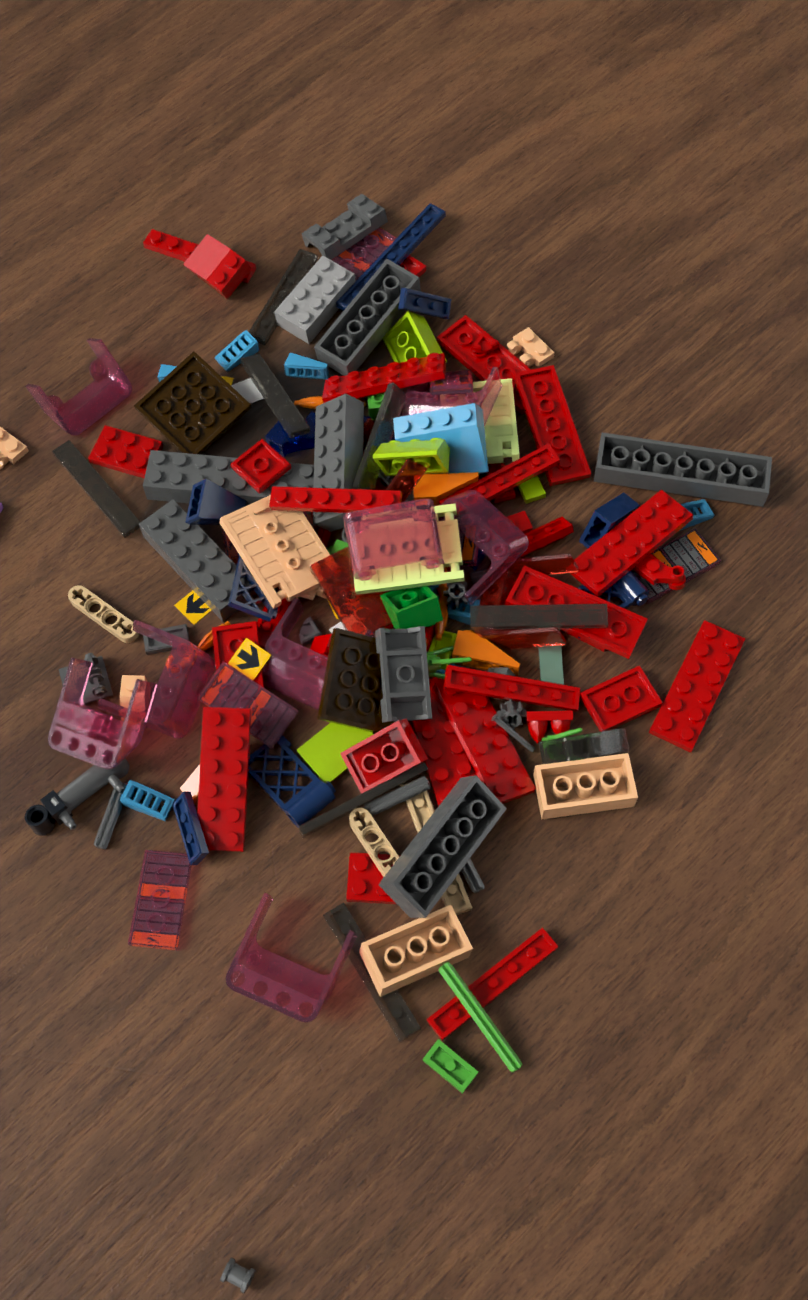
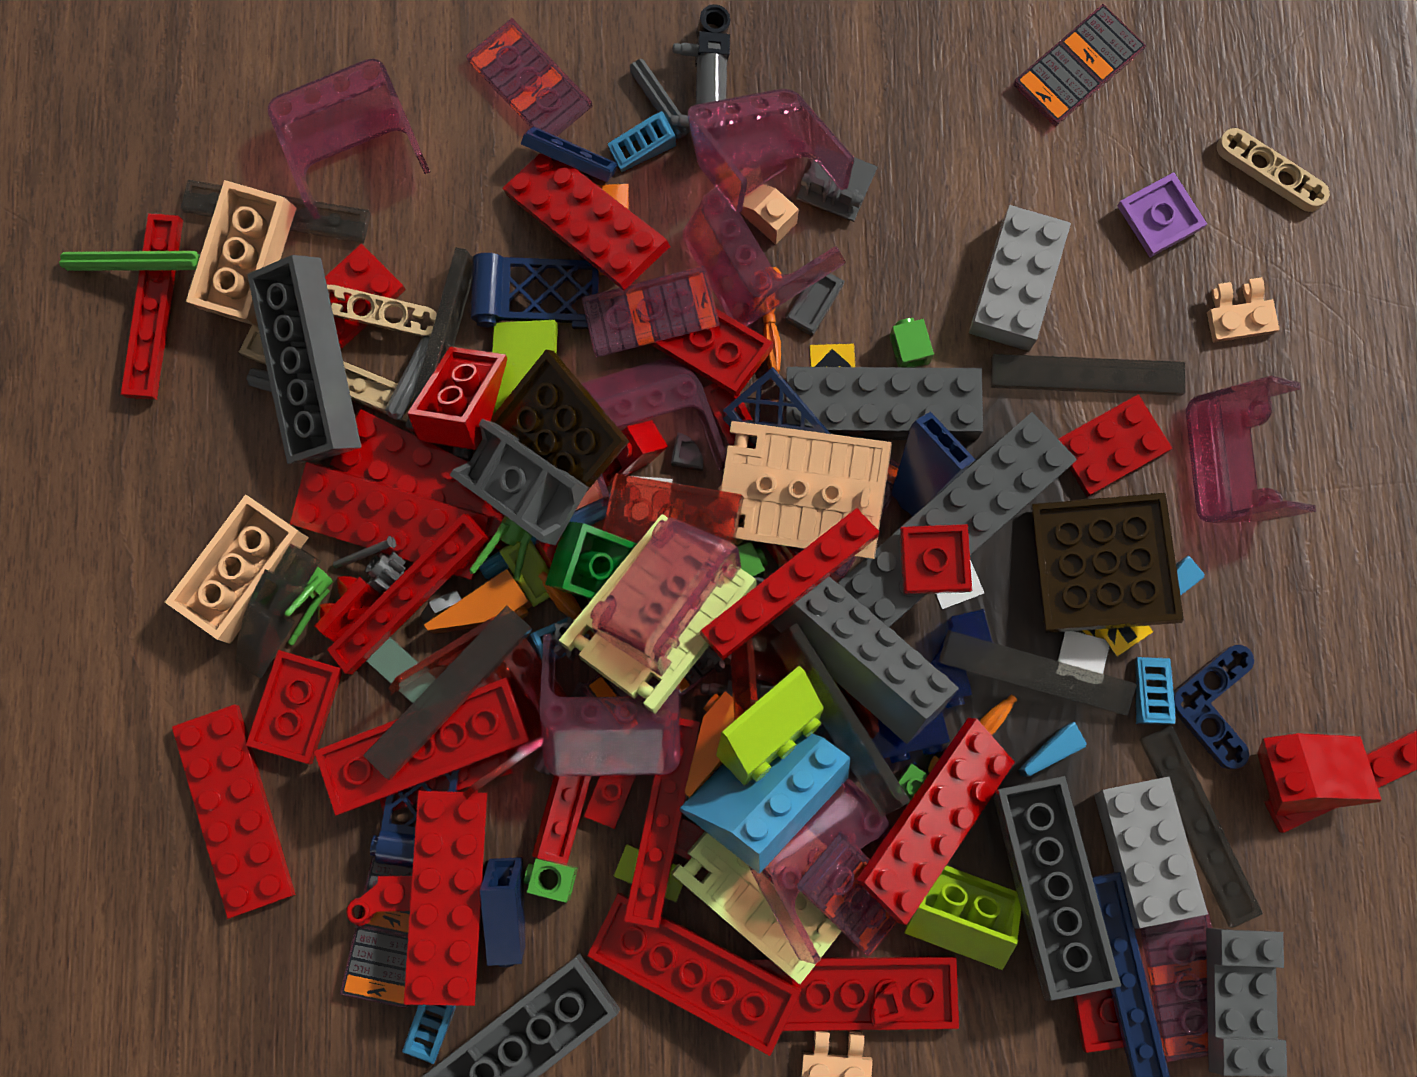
camera: 135 degrees right, 15 degrees up
(68, 551) = (1019, 278): none -> light grey brick
(83, 719) = (781, 128): clear pink brick -> none
(101, 616) = (908, 265): tan beam -> none
(151, 572) = (911, 343): none -> bright green brick
(225, 330) = (1204, 709): none -> dark blue beam
(249, 659) = (697, 351): yellow sticker -> none
(424, 303) = (1013, 981): dark blue tile -> none
(450, 1066) = (121, 203): bright green plate -> none
(575, 507) = (564, 887): none -> bright green brick

